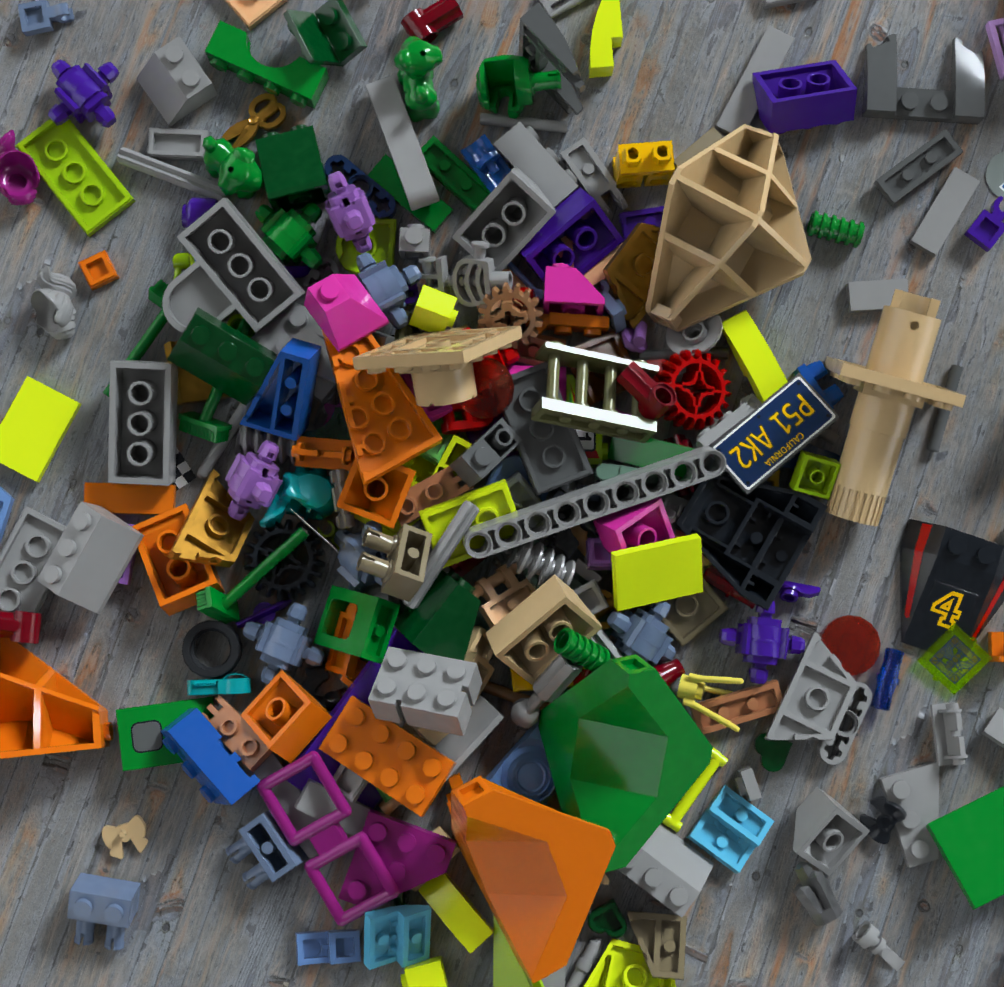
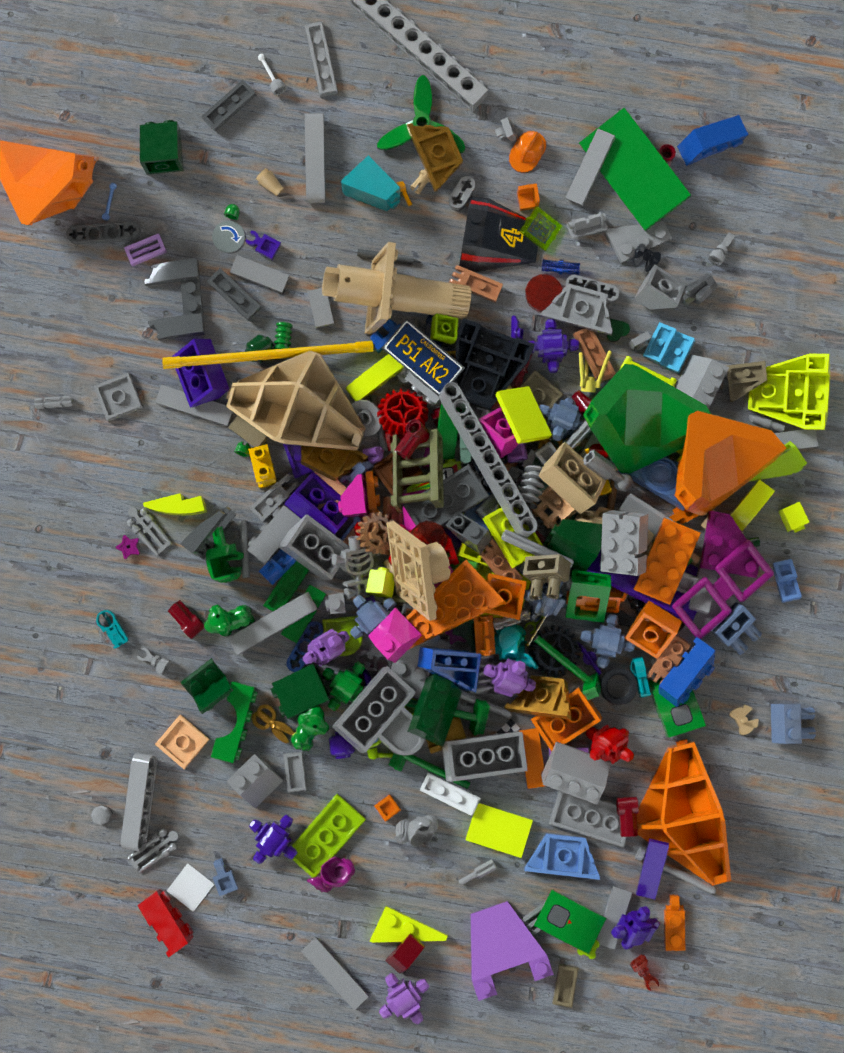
camera: 100 degrees left, 0 degrees up
(95, 367) = (450, 794): none -> white tile
(123, 616) = (609, 744): none -> red piece
(170, 173) = (316, 771): light grey axle -> none
(397, 935) = (772, 538): medium azure slope -> none
(580, 649) = (582, 451): green piece -> none
(607, 919) = (737, 412): dark green tile -> none
(679, 141) = (242, 449): none -> green hinge
(823, 56) = (178, 362): none -> yellow piece
(827, 191) = (259, 343): none -> dark green head
(879, 542) = (479, 284): none -> nougat hinge

